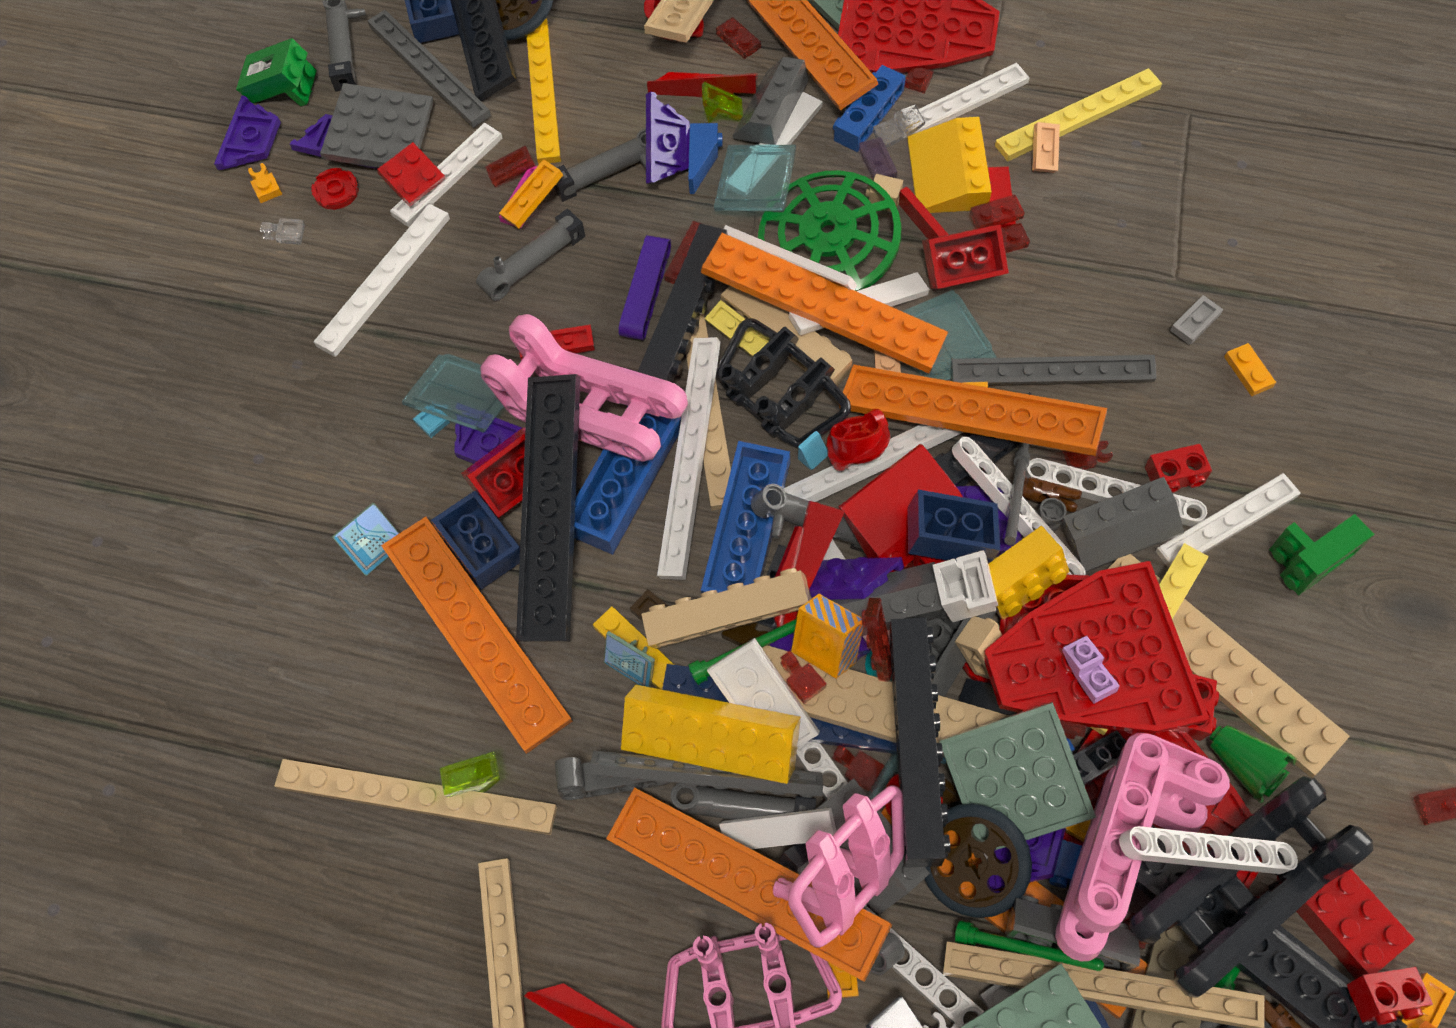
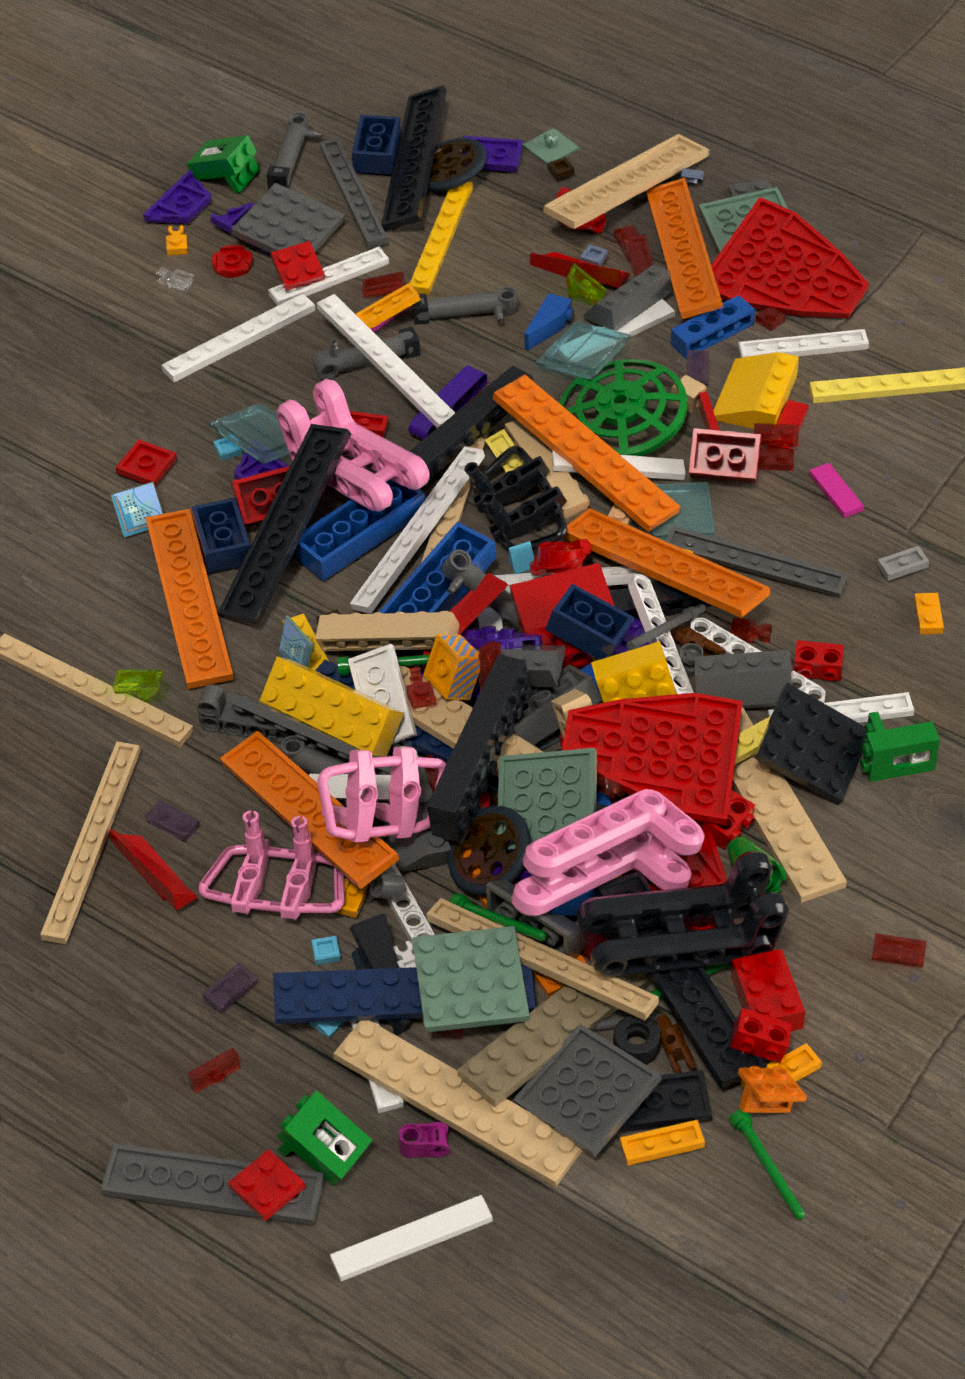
camera: 20 degrees right, 15 degrees down
(350, 472) = (146, 463): none -> red plate
(561, 261) = (385, 360): none -> white plate
(588, 944) = (172, 821): none -> clear purple plate
(665, 140) = (519, 299): dark purple wing -> none
(711, 63) = (594, 255): none -> sand blue plate
(757, 49) = (639, 253): none -> clear red plate
(821, 270) = (599, 431): white tile -> none
(900, 127) = (728, 350): clear slope -> none
(966, 586) = (574, 662): white plate -> none
(1046, 147) = (848, 398): light nougat plate -> none
(1085, 256) = (836, 490): none -> dark pink tile
(1088, 669) = (645, 749): lavender slope -> none
(1199, 854) = (644, 869): white beam -> none
(1232, 579) = (811, 744): none -> black plate

